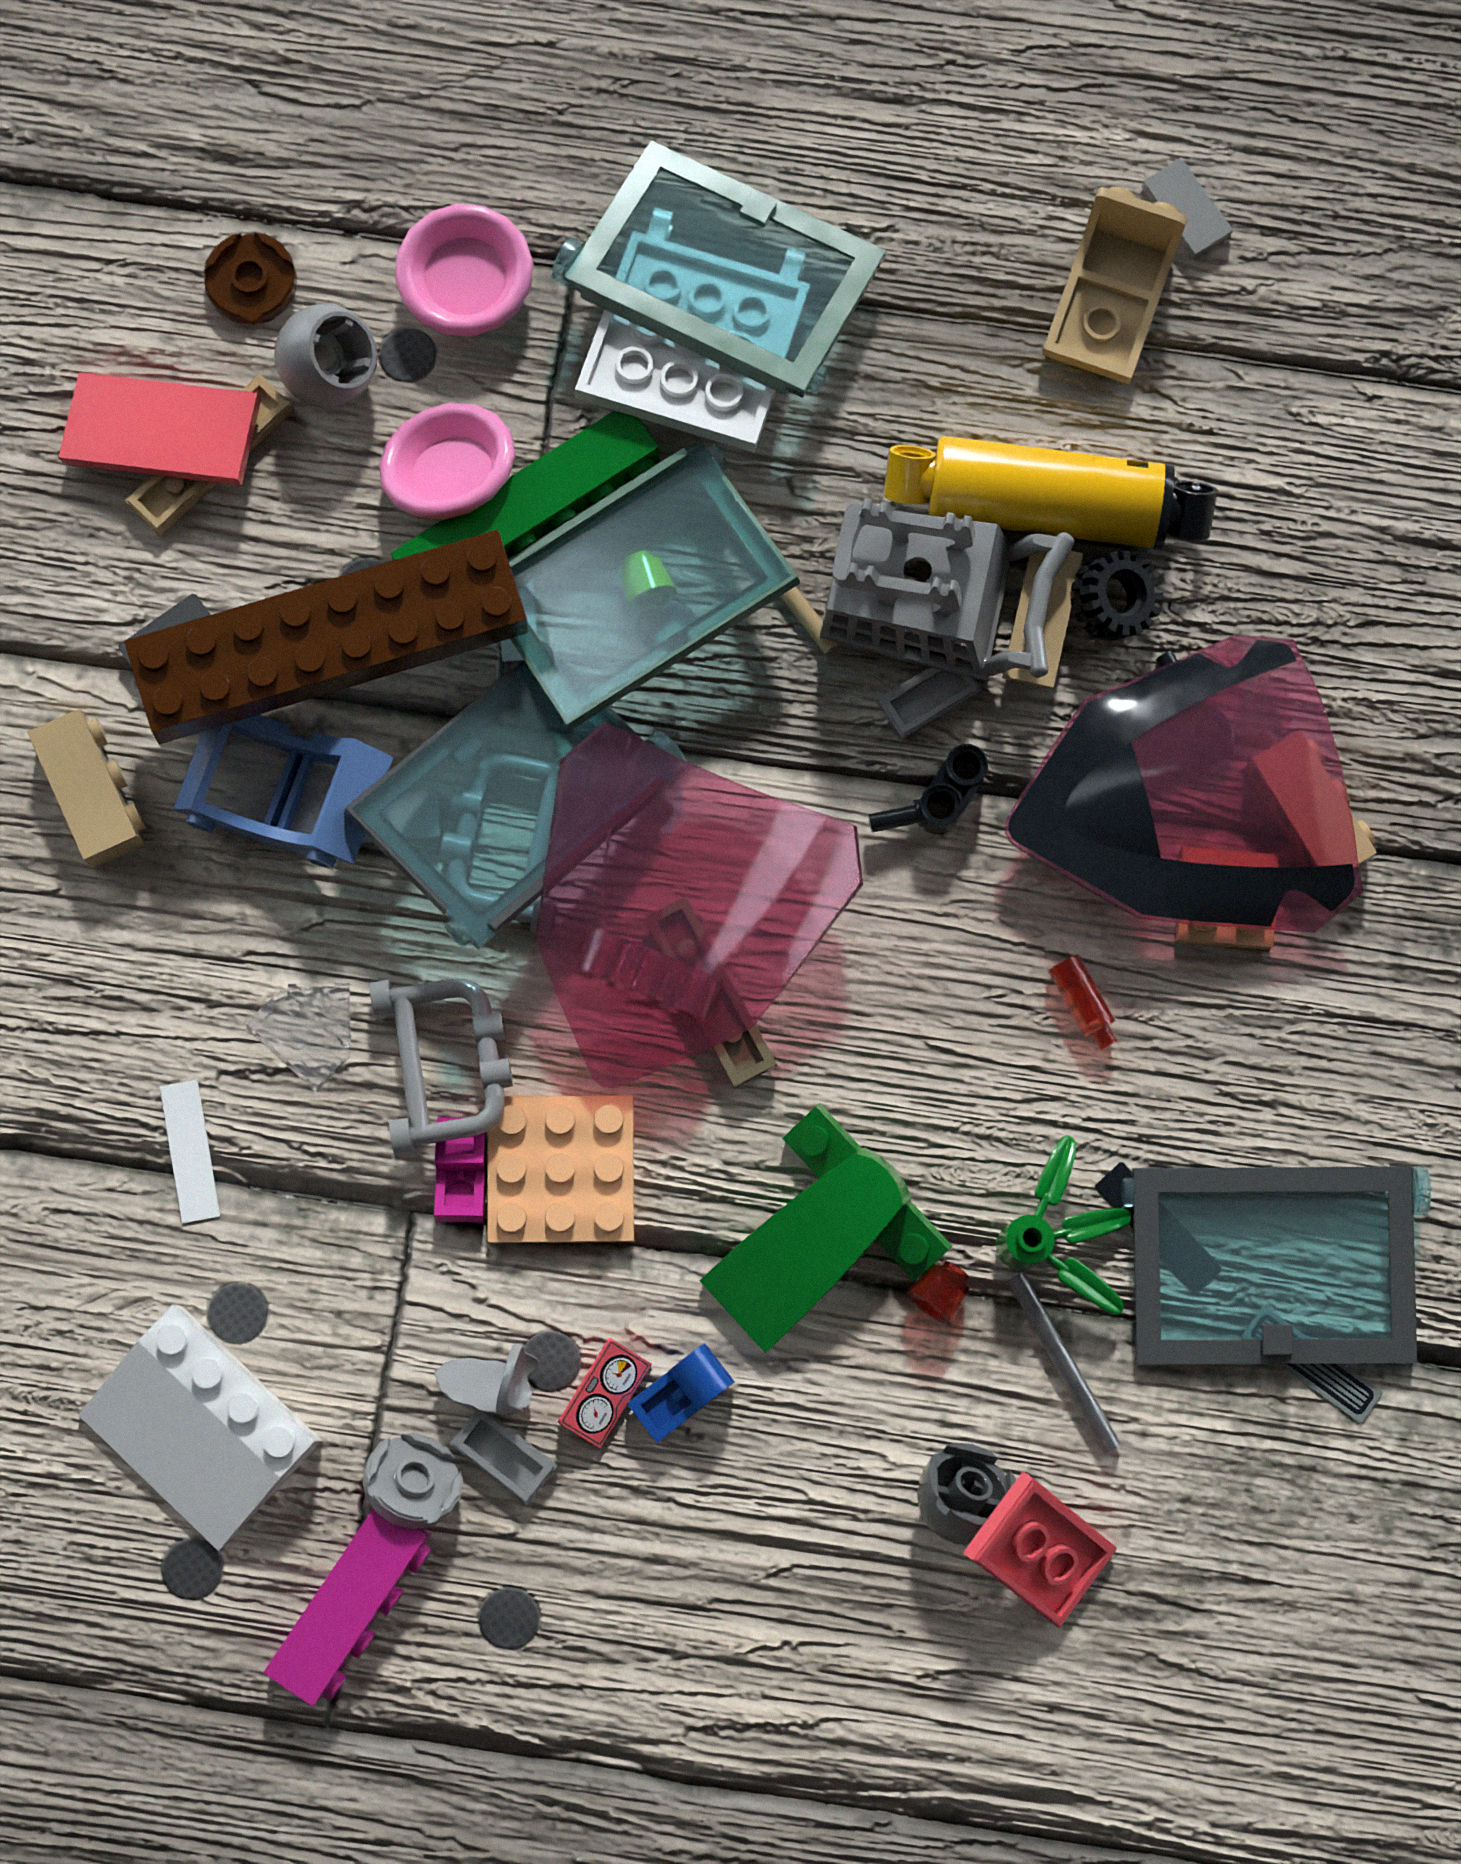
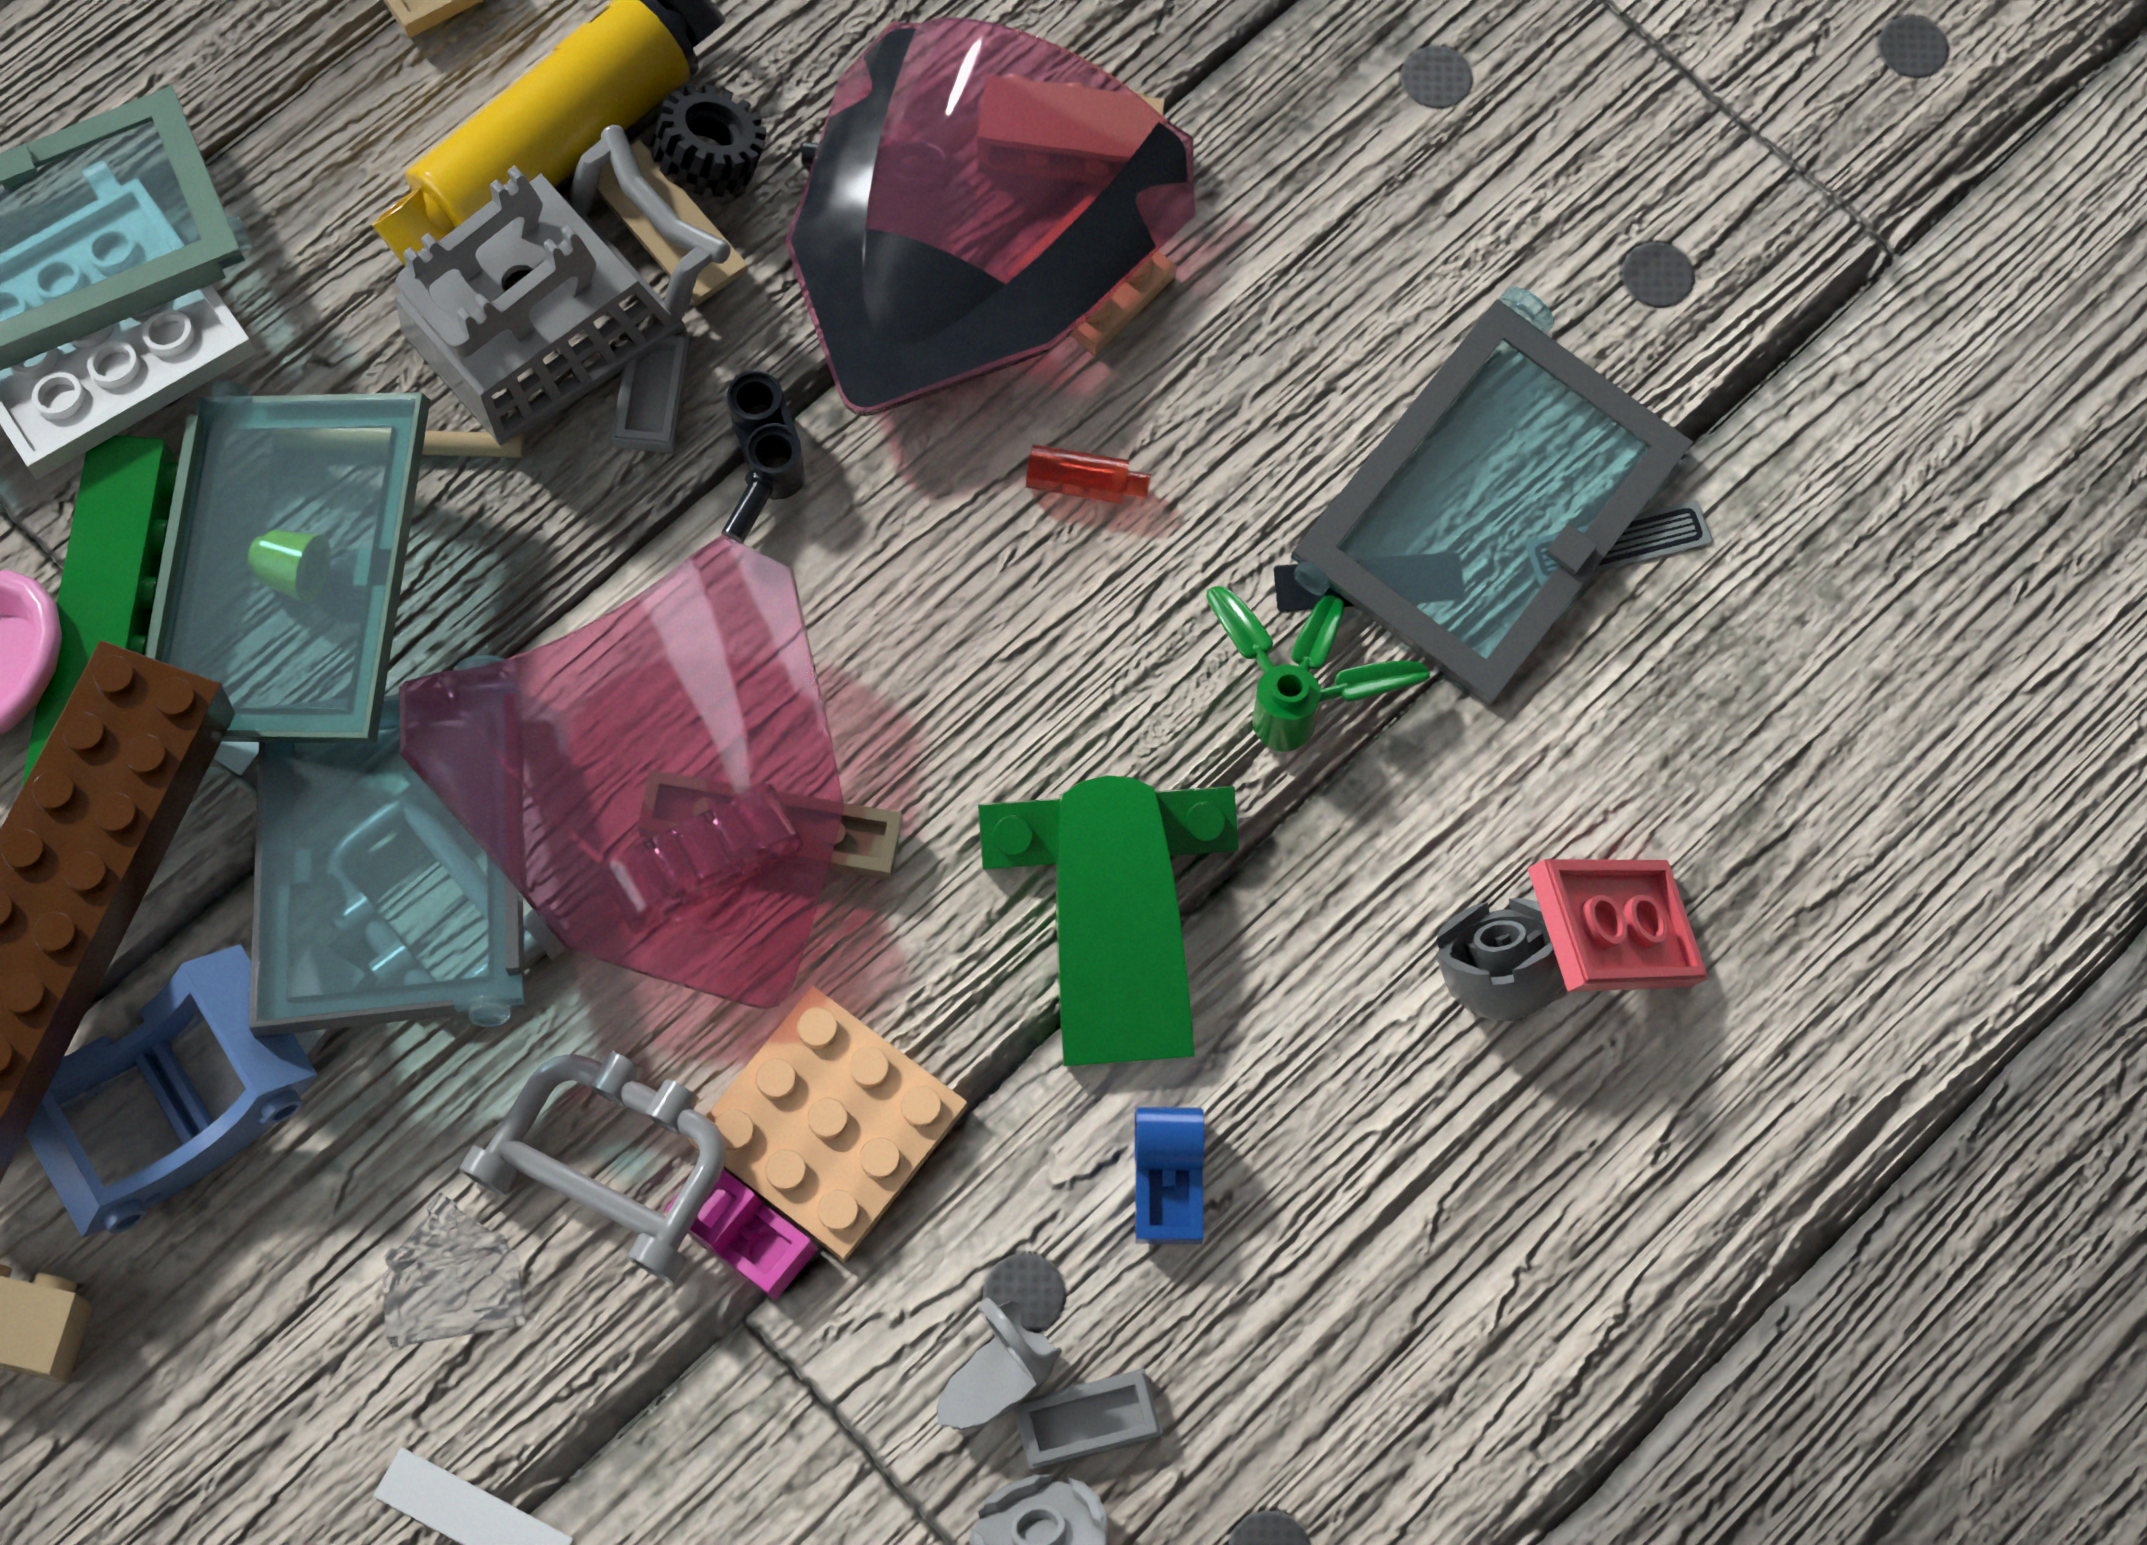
camera: 55 degrees left, 10 degrees down
(604, 1392) = (1104, 1258): slope -> none
(940, 1292) = (1271, 832): clear red hat -> none
(1064, 1363) = (1436, 770): flat silver bar -> none

